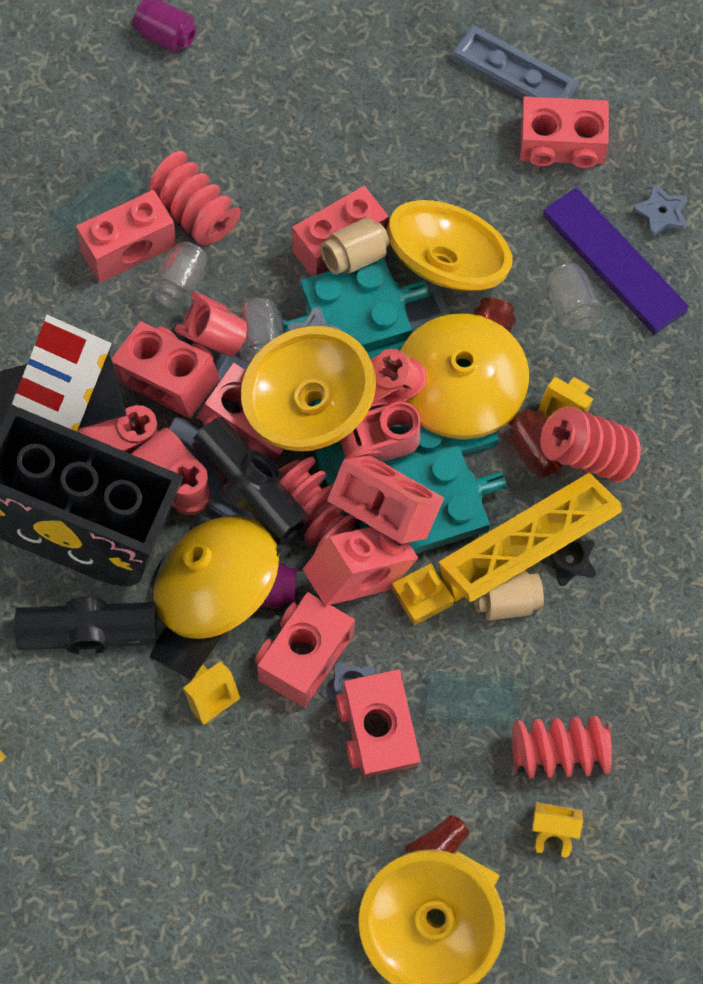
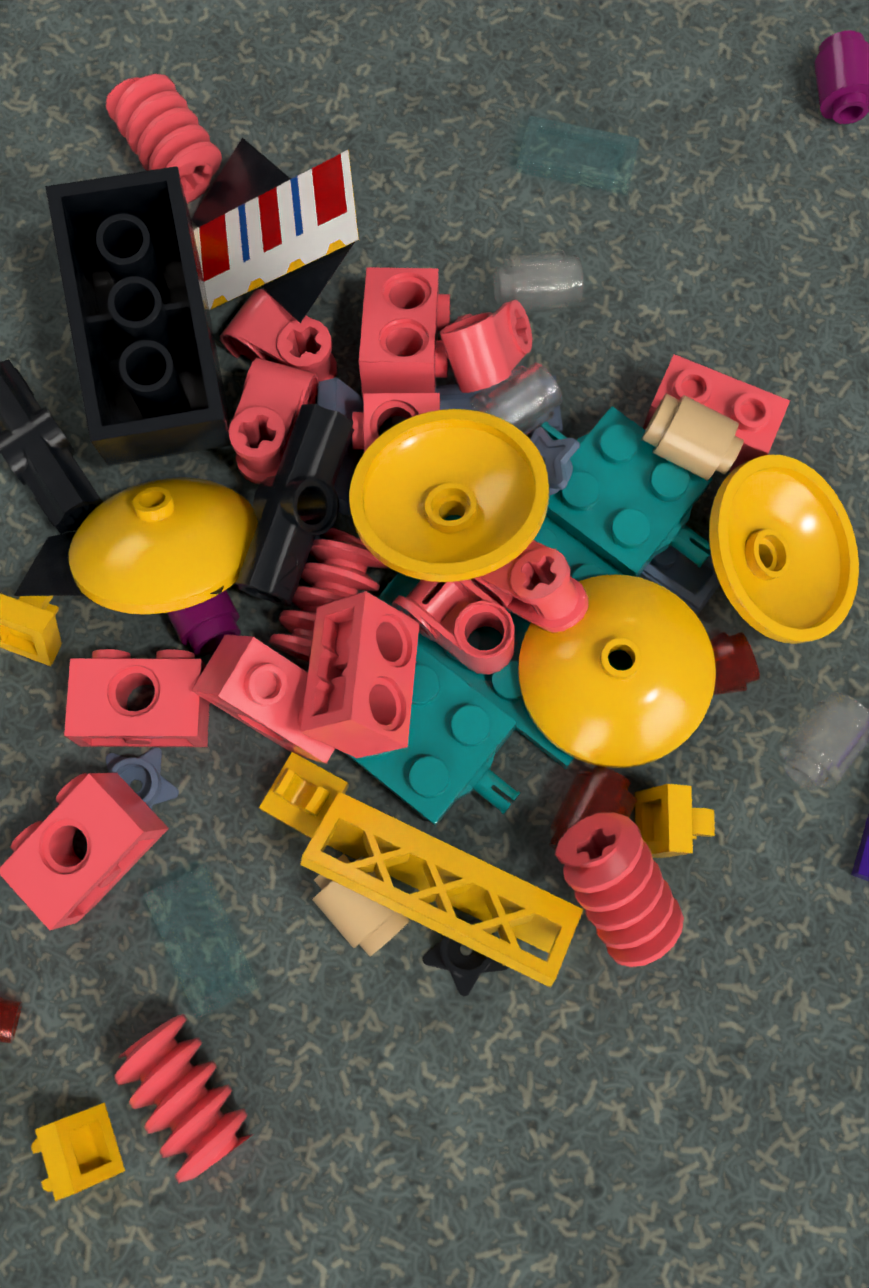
camera: 60 degrees right, 10 degrees up
(126, 236) = (544, 194): coral brick -> none
(193, 200) = (643, 235): coral piece -> none

